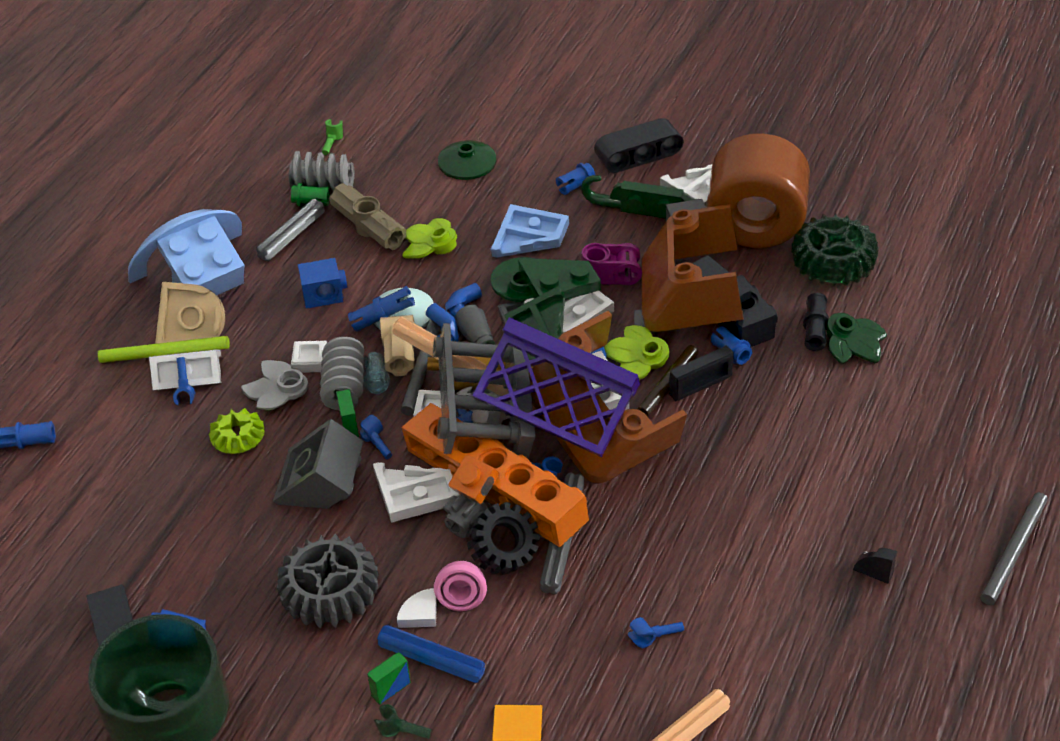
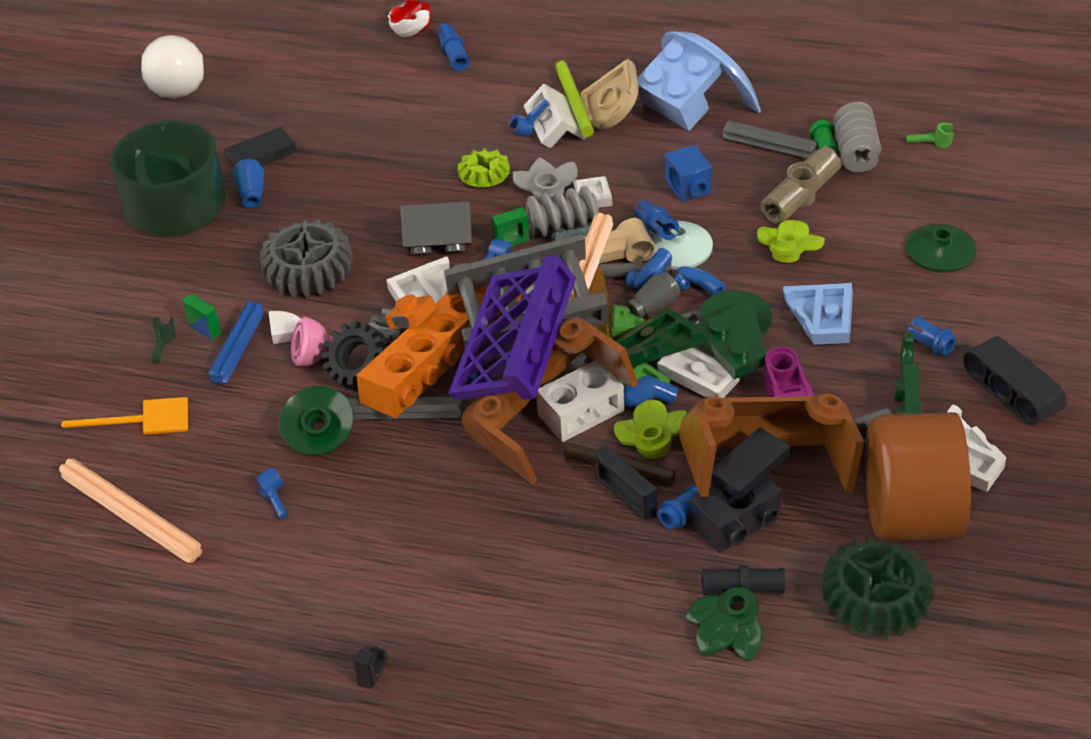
camera: 80 degrees right, 0 degrees up
(583, 572) = (314, 406): none -> dark green dish

